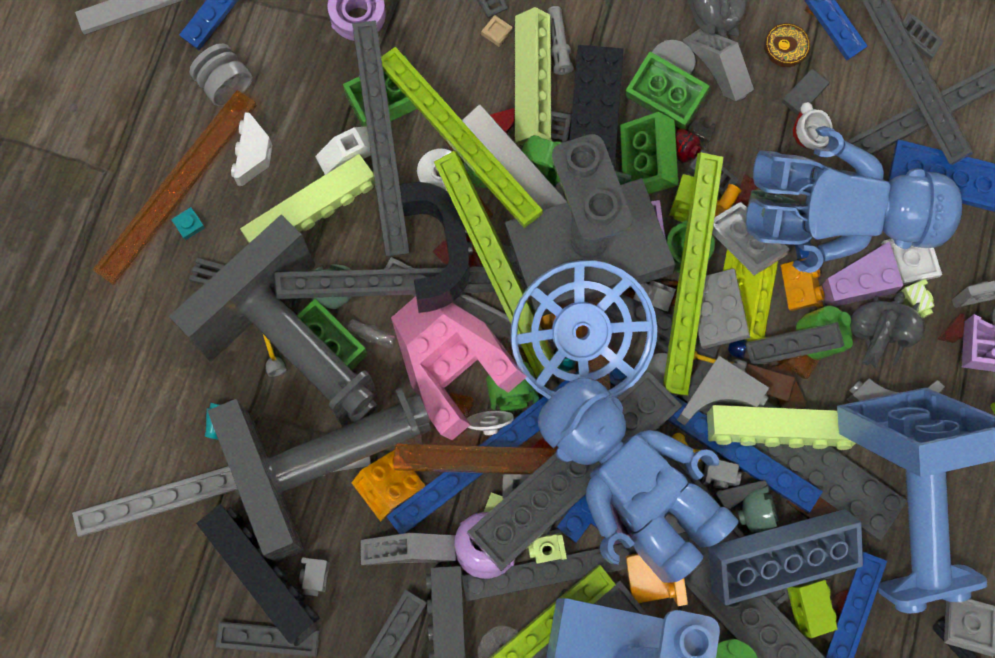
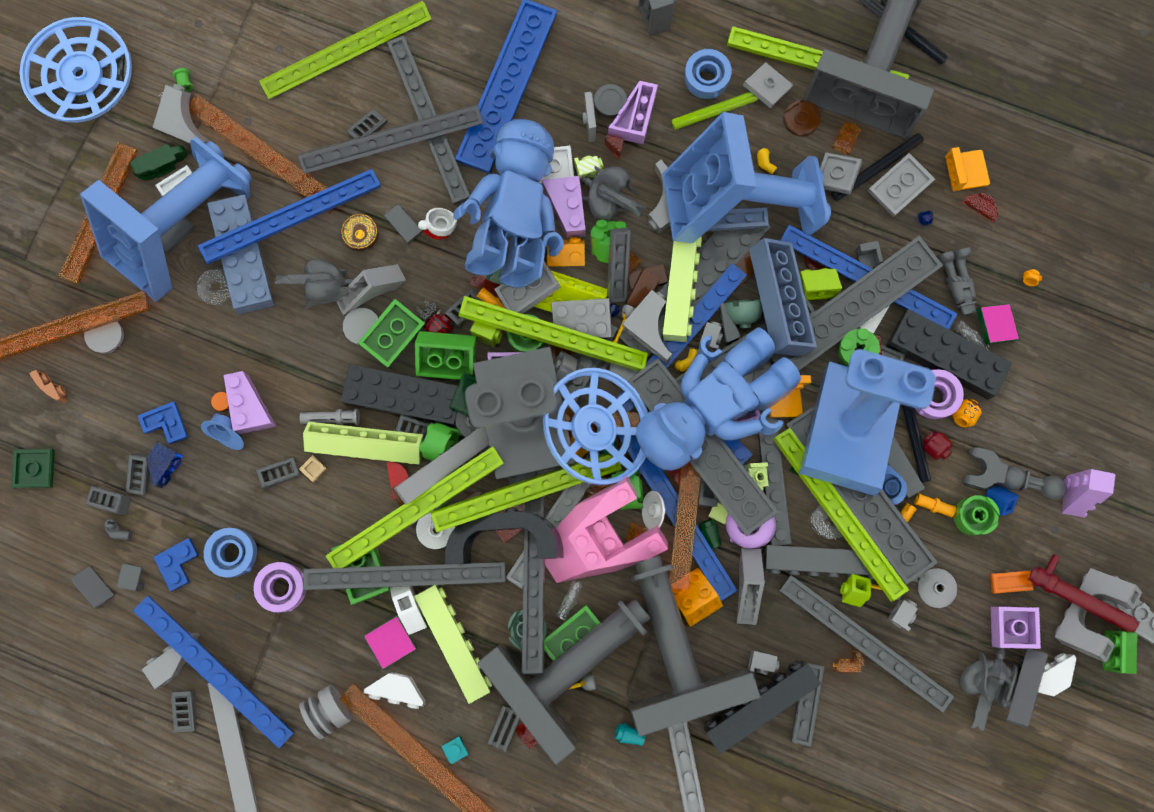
camera: 80 degrees left, 5 degrees up
(303, 137) = (390, 642): none -> dark pink tile
(470, 497) = (710, 531): none -> dark green cone
(881, 491) = (743, 219): none -> sand blue plate
(968, 524) = (763, 161): none -> yellow arm

